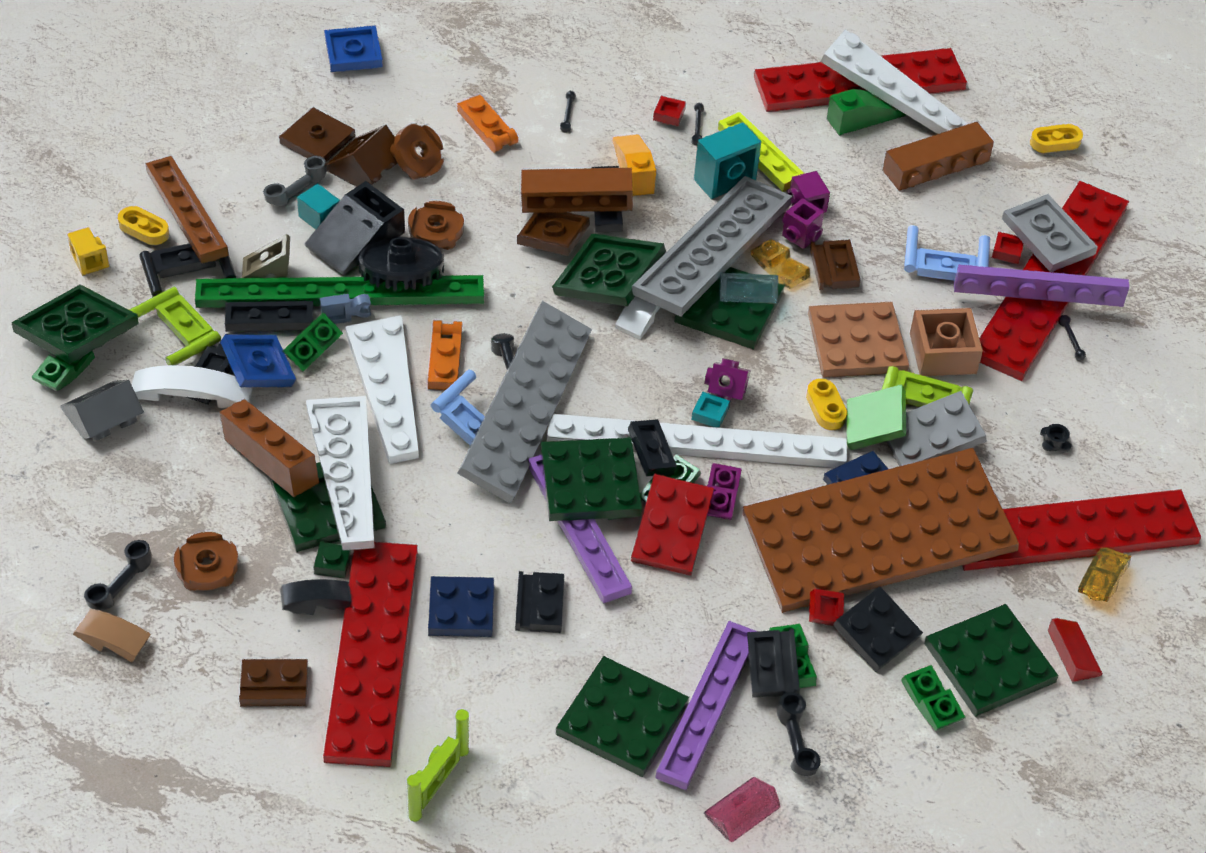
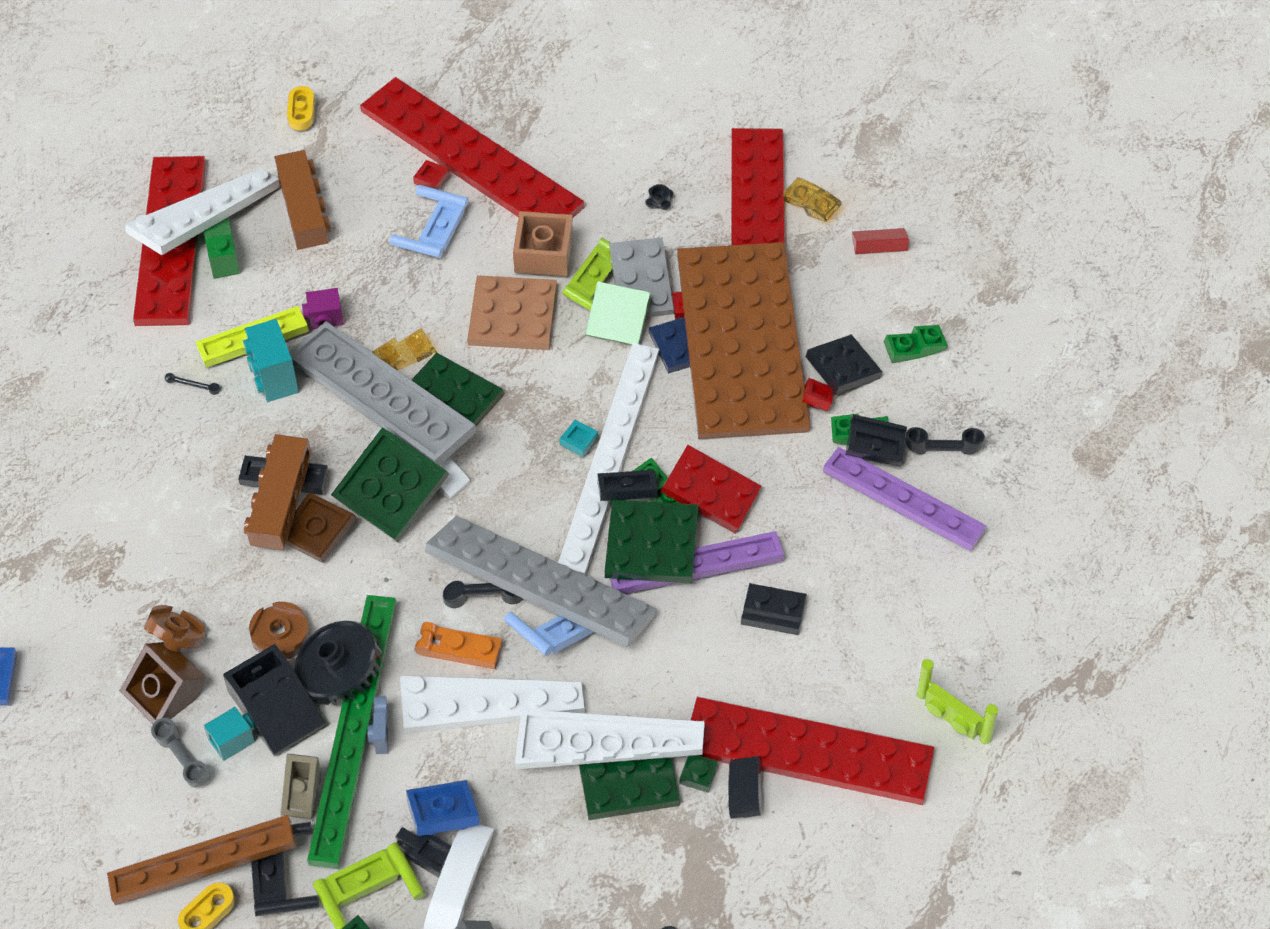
camera: 75 degrees left, 5 degrees up
(211, 576) = (686, 898): dark orange plate -> none
(268, 316) = (372, 797): black plate -> none
(269, 447) = (567, 804): dark orange brick -> none
(273, 682) = (833, 836): reddish brown plate -> none
(312, 342) = (425, 765): green slope -> none
(317, 135) = (109, 728): reddish brown plate -> none
(461, 606) = (769, 672): dark blue plate -> none
(487, 123) = (138, 565): orange plate -> none
(566, 126) = (160, 497): black hinge -> none
(622, 716) = (904, 565): dark green plate -> none
(635, 154) = (234, 441): light orange slope -> none
(669, 111) = (171, 401): red plate -> none
(725, 483) = (669, 447): magenta slope -> none
(738, 379) = (552, 414): magenta brick -> none
(743, 808) = (1004, 495): clear pink slope -> none
(748, 288) = (443, 375): clear light blue slope -> none
(803, 223) = (368, 319): magenta brick -> none
(823, 399) = (585, 351): yellow plate -> none
(835, 264) = (419, 308): reddish brown plate -> none
(990, 659) = (881, 297): dark green plate -> none
(1041, 285) = (496, 163): medium lavender plate -> none
(1049, 233) = (432, 137): light grey plate -> none
(1064, 321) = (566, 158): black hinge -> none

